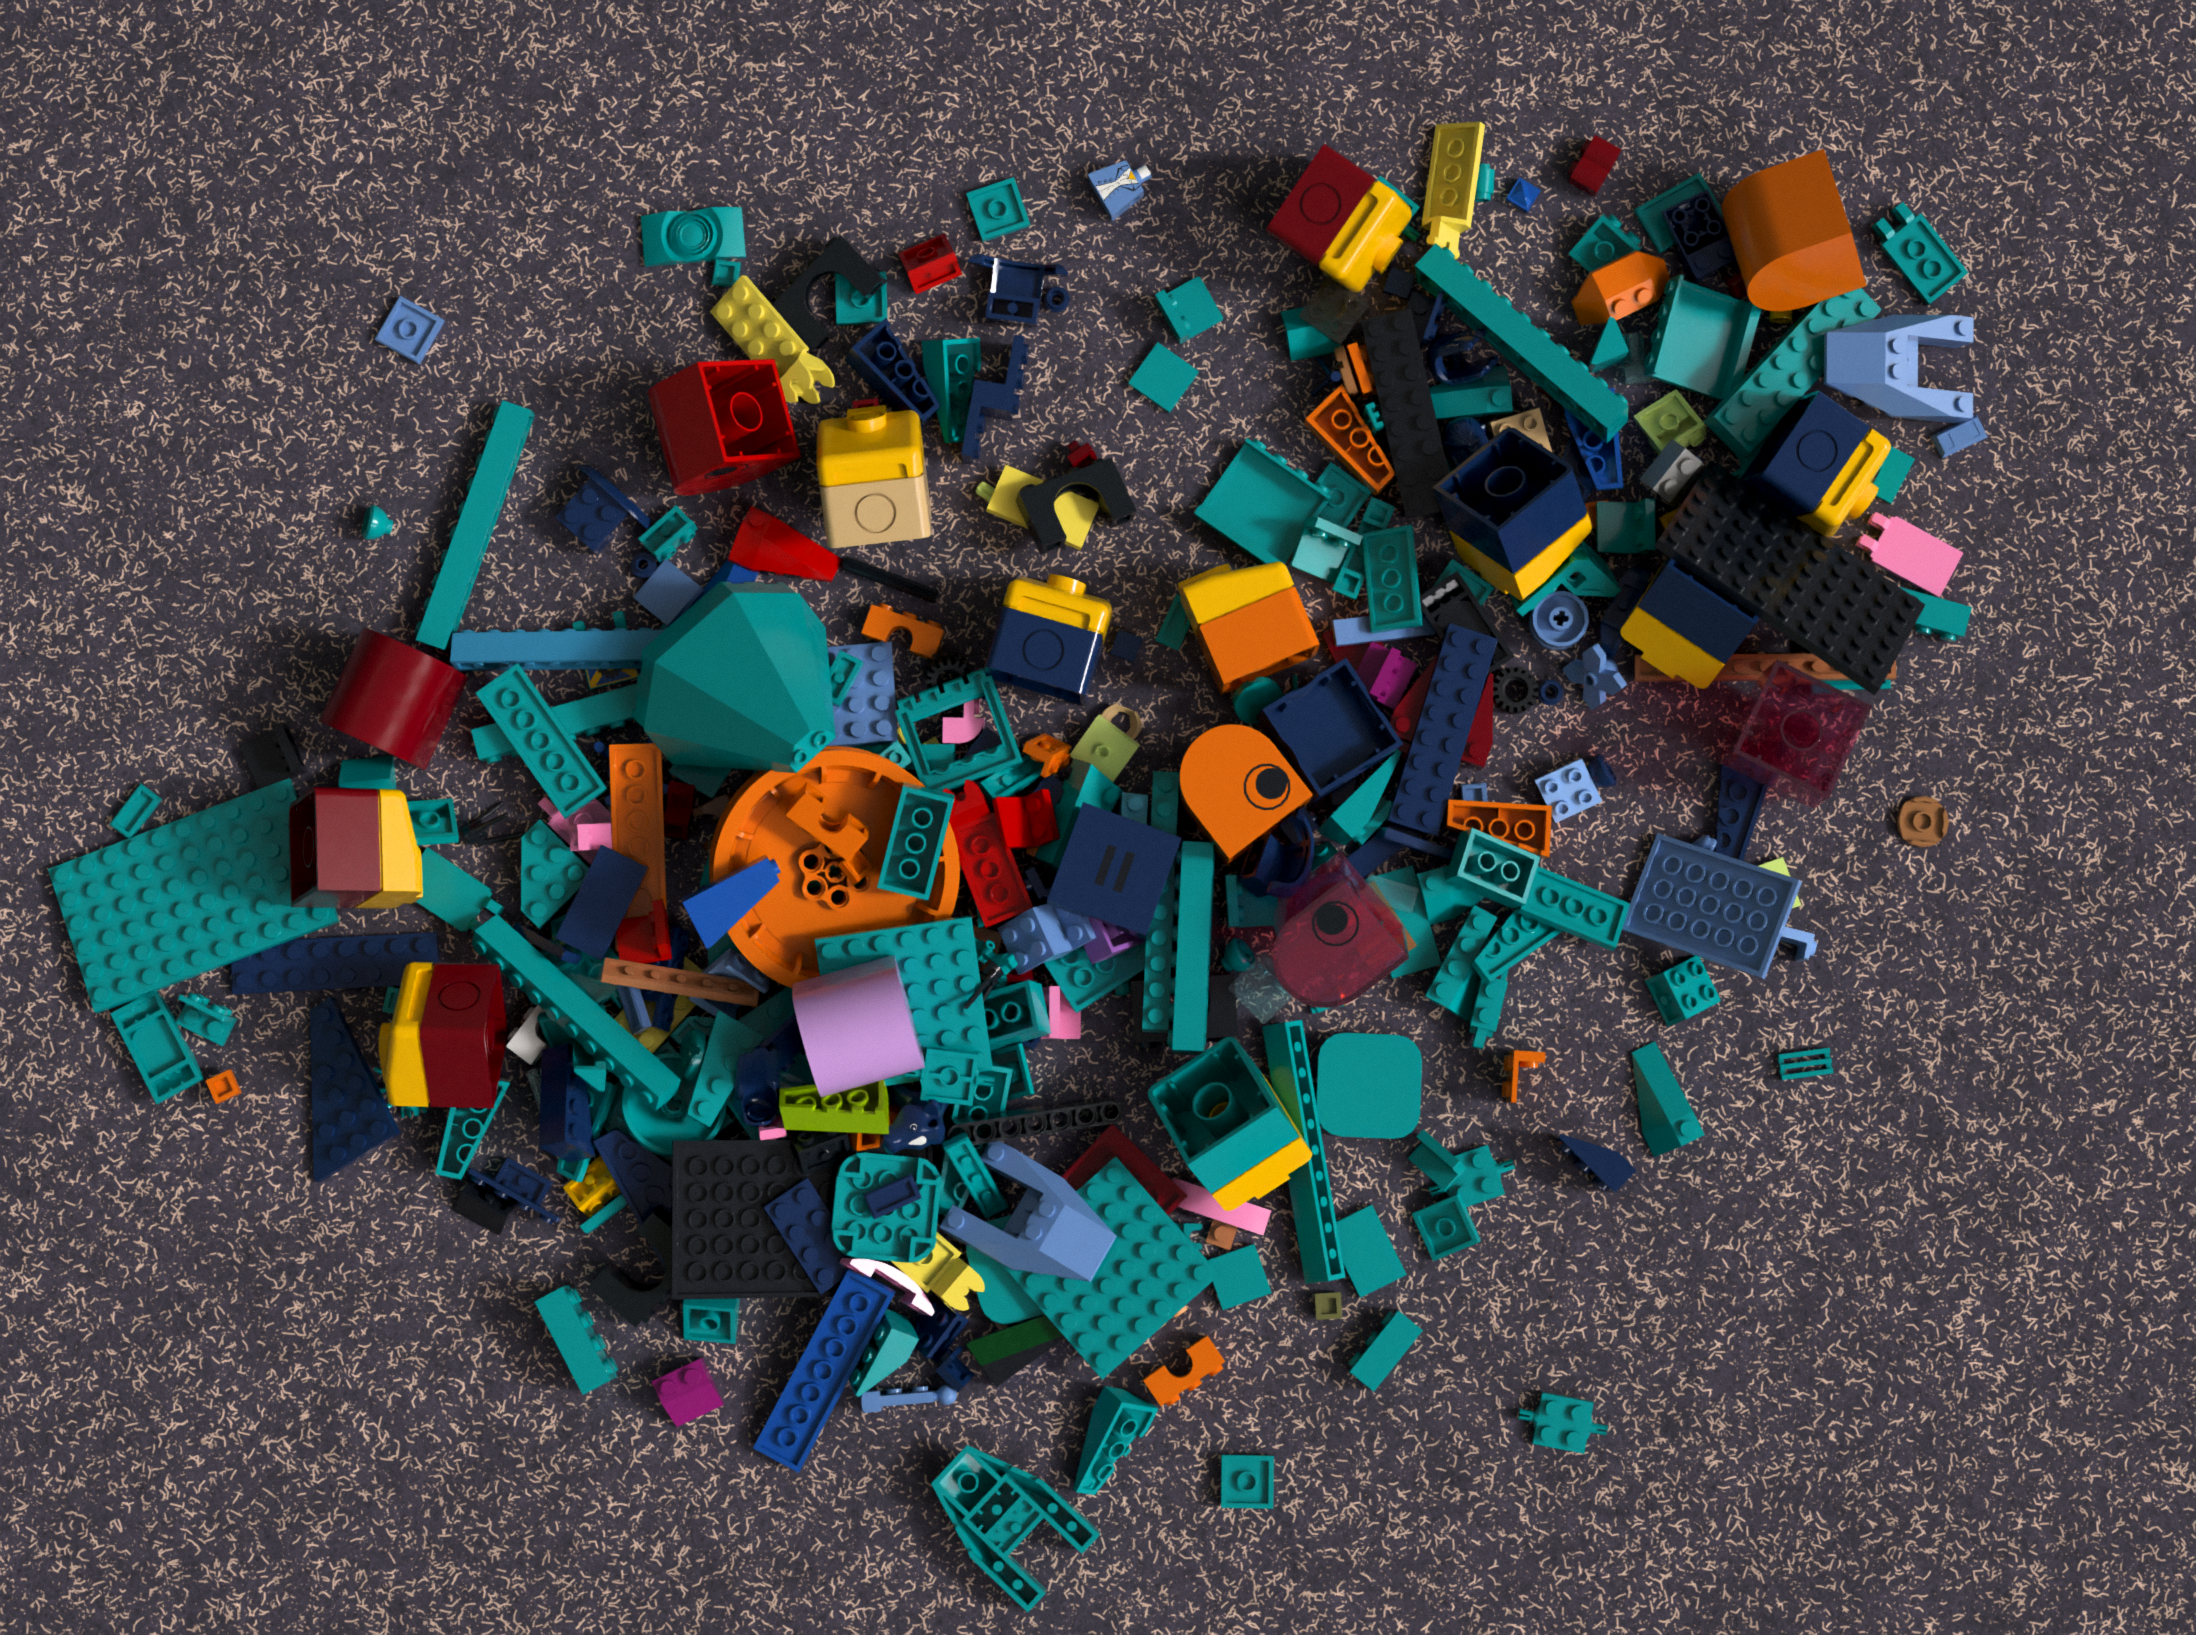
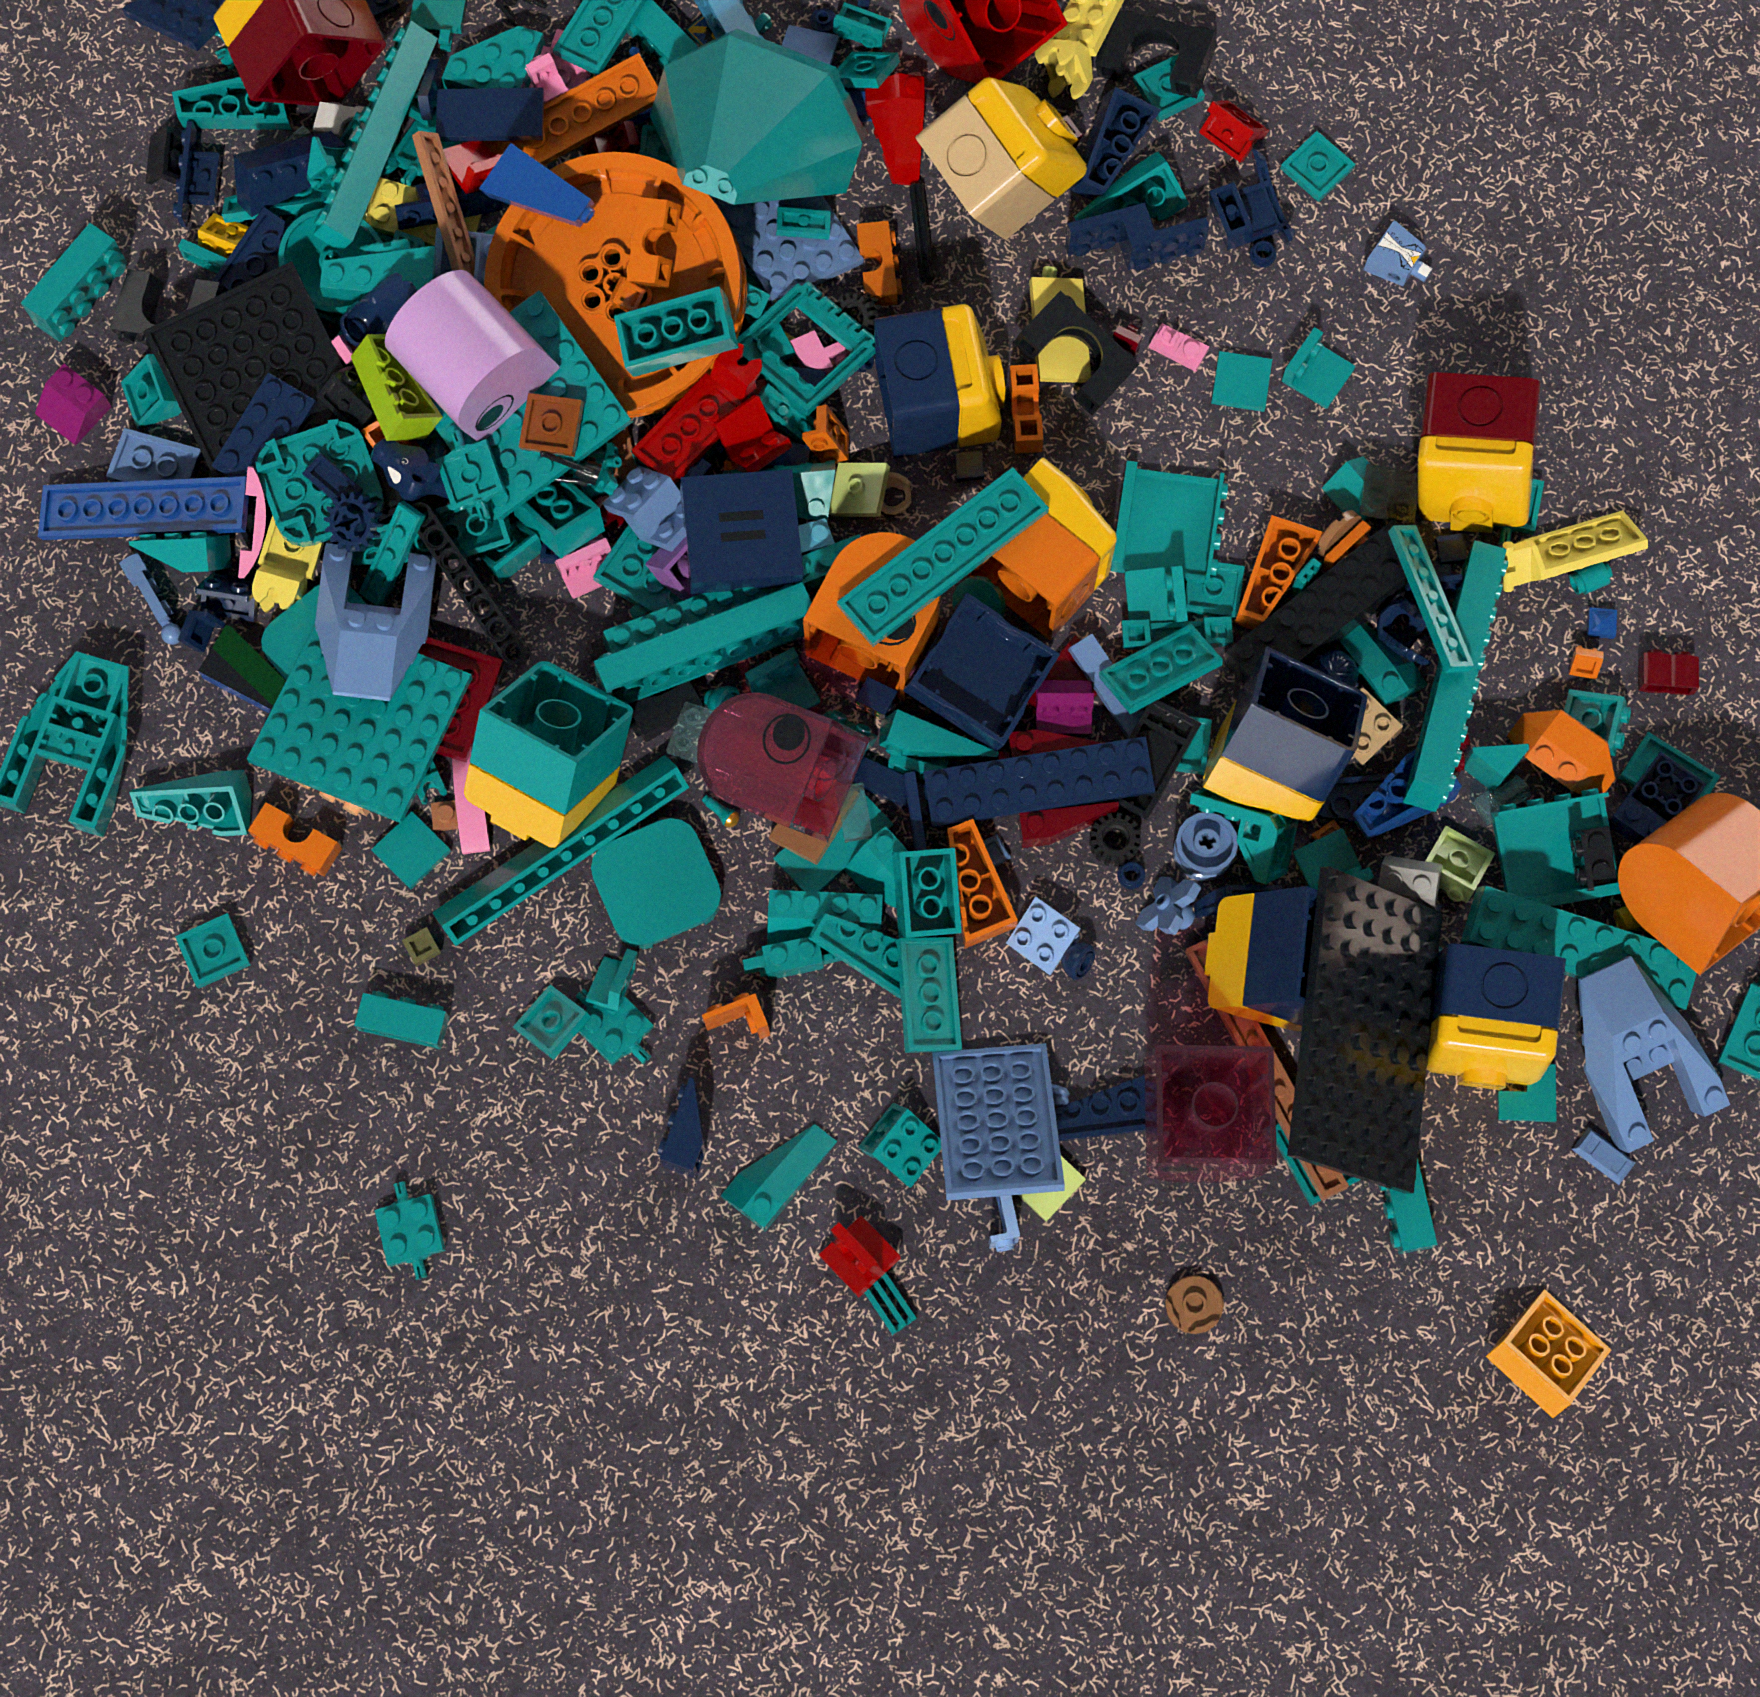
camera: 60 degrees right, 10 degrees down
(634, 1009) = (404, 187): medium blue tile -> none
(717, 553) = (867, 69): none -> teal tile
(778, 1343) = (152, 458): none -> medium blue plate
(937, 1191) = (360, 533): none -> dark blue gear
(944, 986) = (551, 424): none -> dark orange plate
(1104, 575) = (1025, 408): none -> orange arch
(1106, 414) = (1179, 347): none -> bright pink plate
(1235, 716) = (942, 557): none -> teal plate
(1278, 868) = (826, 689): dark blue piece -> none
(1331, 377) = (1324, 522): dark blue plant -> none
(1368, 1251) = (493, 960): teal tile -> none
(1455, 330) = (1430, 599): none -> teal plate
(1552, 227) = (1586, 662): none -> orange tile
(1722, 313) = (1594, 857): none -> black bracket
(1758, 1068) = (859, 1255): none -> red bracket
(1910, 554) = (1459, 1162): bright pink tile -> none
(2094, 564) = (1549, 1354): none -> light orange slope

